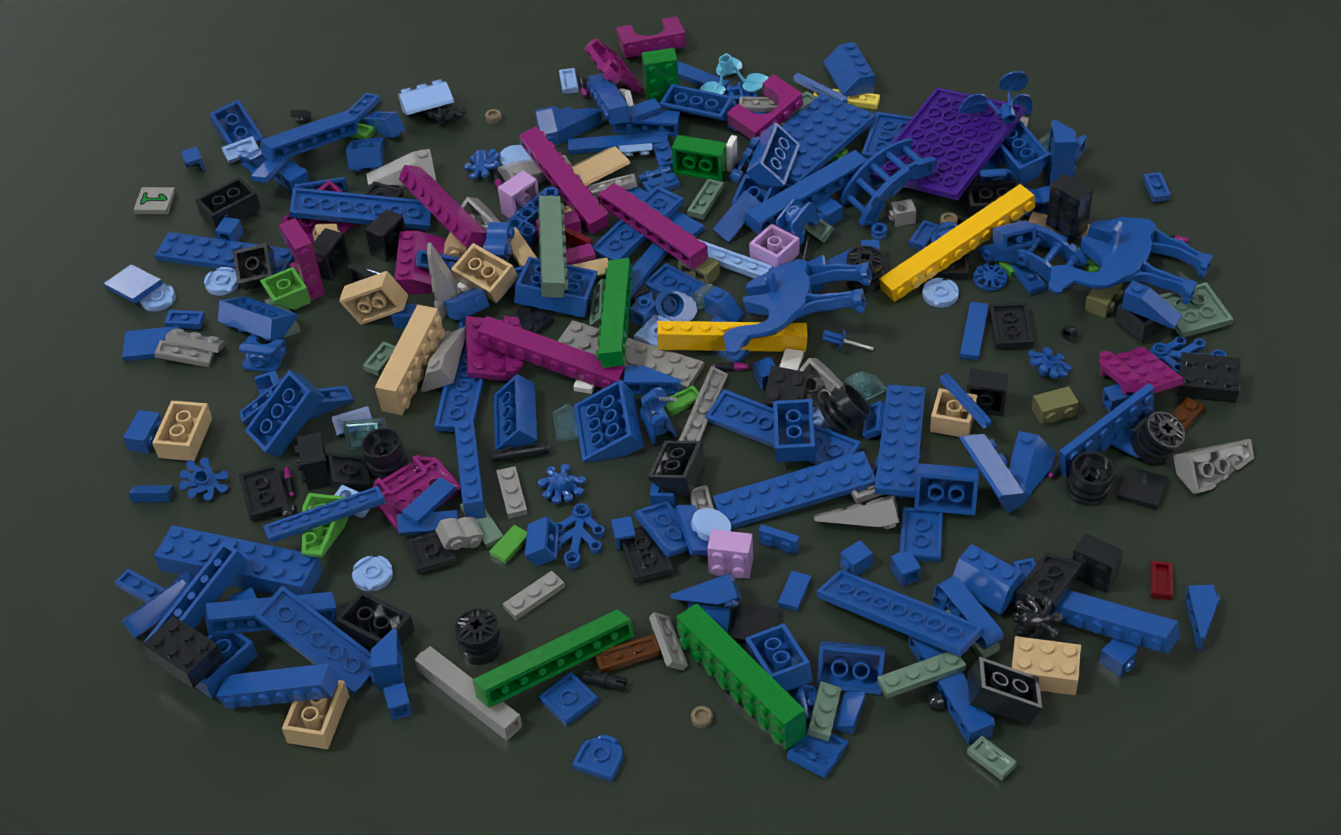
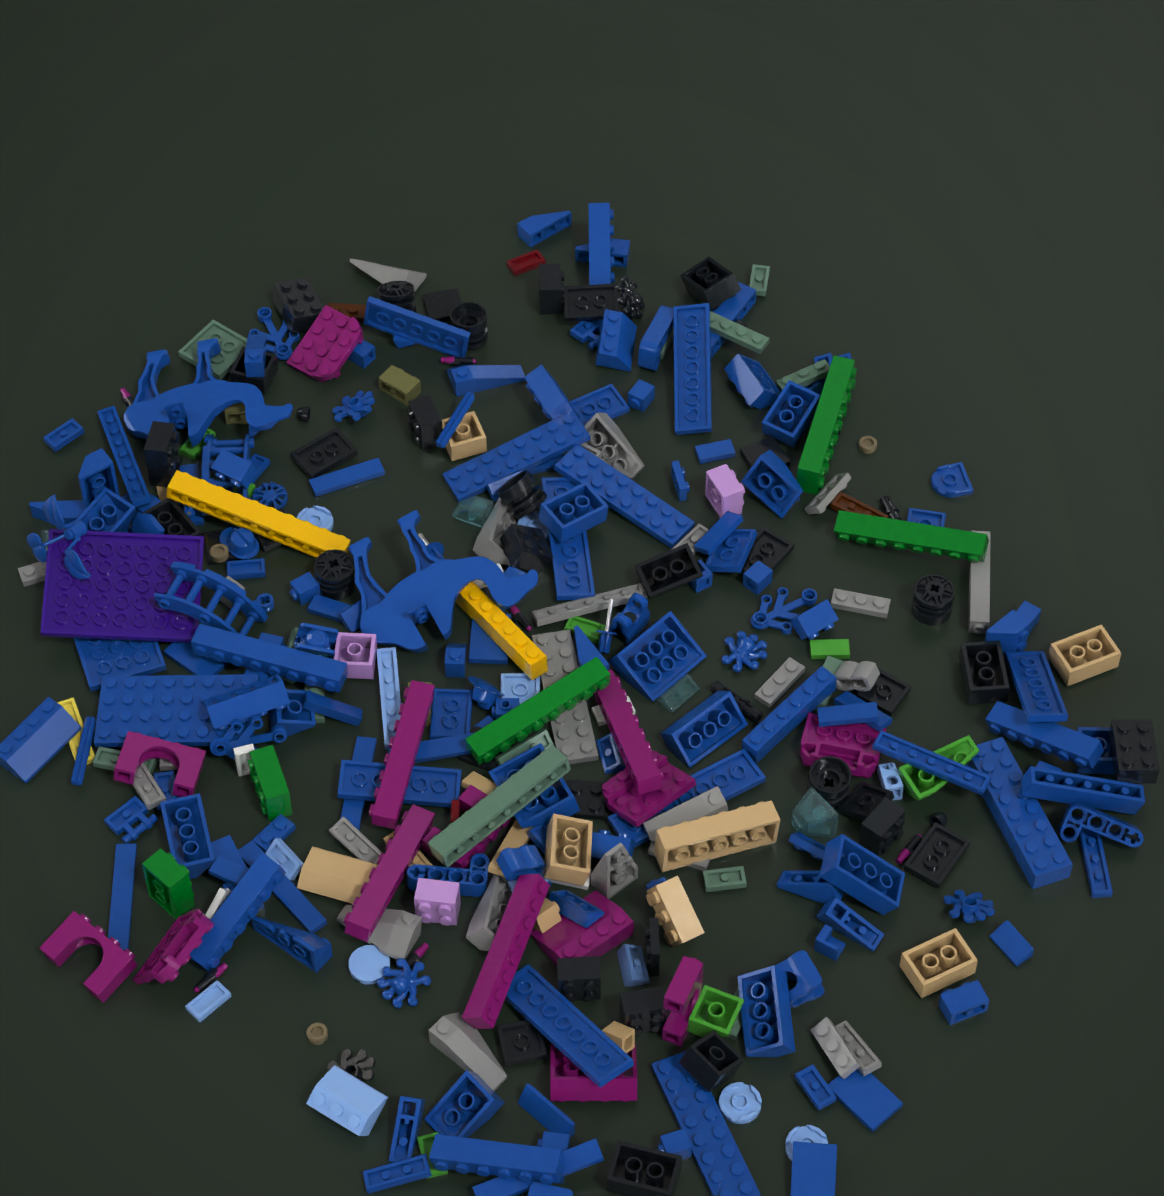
camera: 130 degrees left, 5 degrees up
(278, 686) = (1094, 672): blue brick -> none
(372, 573) = (937, 722): light blue tile -> none
(665, 181) = (317, 809): blue plate -> none
(698, 295) = (453, 679): clear light blue brick -> none
(705, 199) = (317, 756): sand green plate -> none
(707, 519) = (705, 522): light blue tile -> none
(728, 66) = (112, 811): medium azure plant -> none
(849, 711) = (787, 365): blue slope -> none
(856, 558) = (657, 427): blue brick -> none
(995, 471) = (510, 377): slope -> none
(1050, 661) = (661, 282): tan brick -> none
(1108, 204) = (124, 456): none -> blue plate

